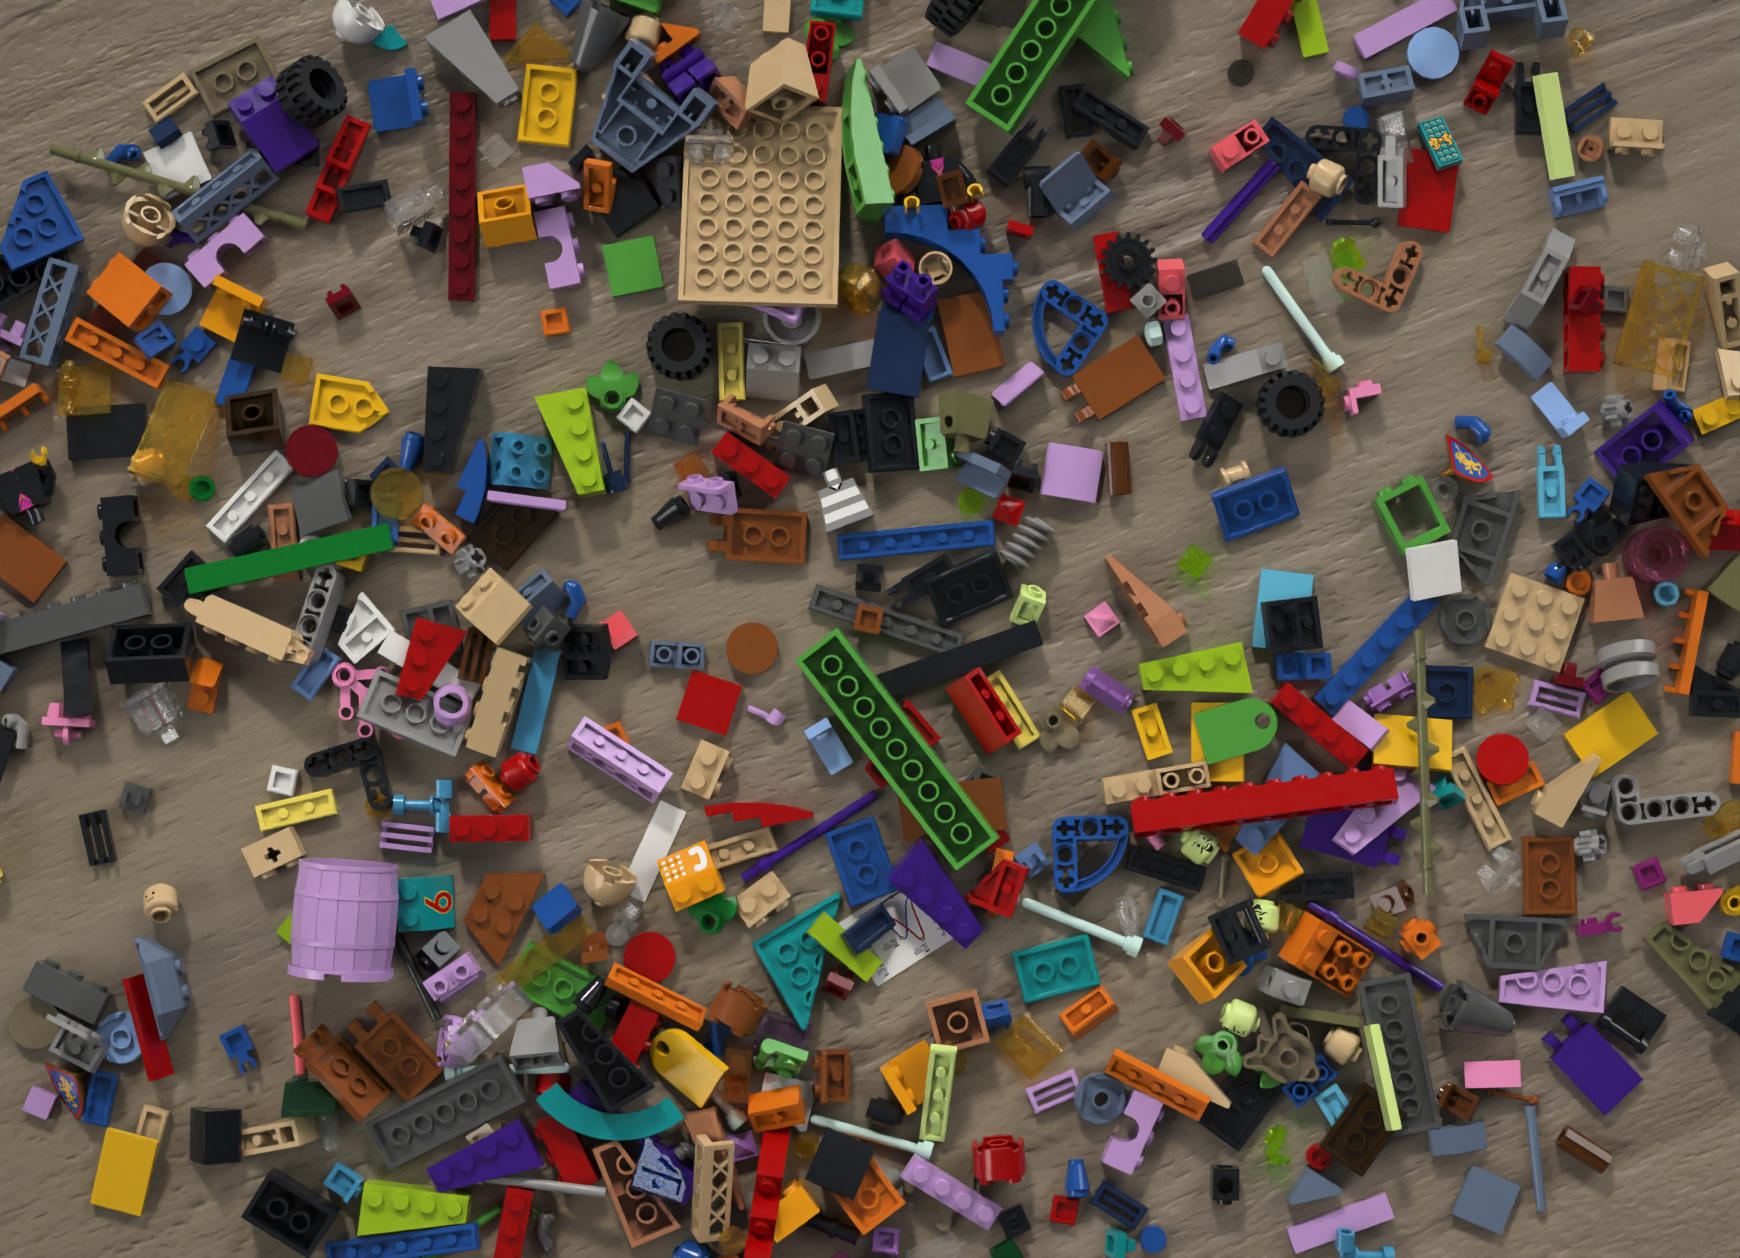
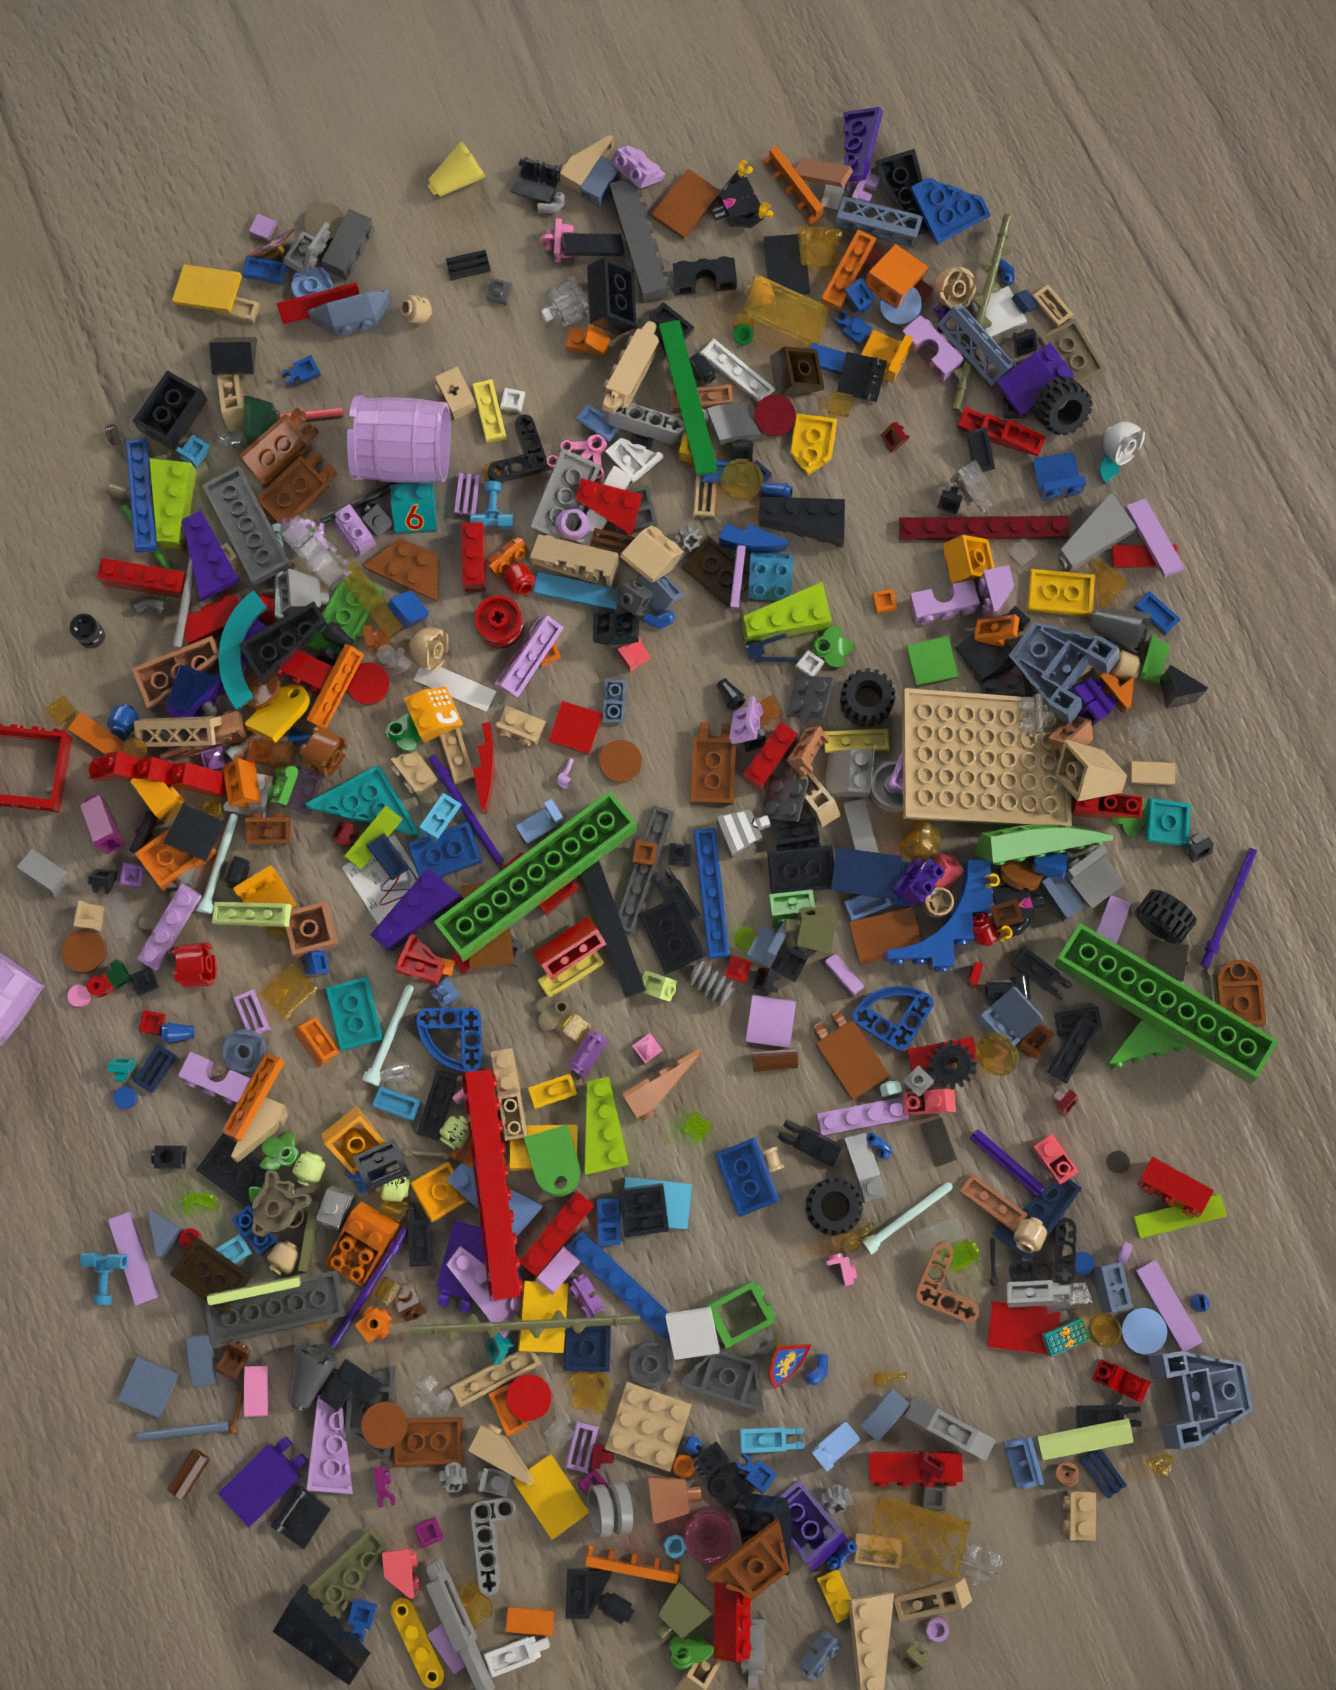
camera: 95 degrees right, 10 degrees down
(439, 528) = (718, 509): orange hinge -> none
(560, 799) = (498, 609): none -> red wheel
(665, 1087) = (262, 693): none -> dark orange tile
(822, 866) = (439, 817): none -> medium azure hinge
(1116, 207) = (997, 1054): none -> clear yellow tile
(1433, 98) = (1104, 1330): none -> clear yellow hair
(1482, 967) = (350, 1379): none -> black plate
(1532, 924) = (384, 1425): none -> dark orange tile

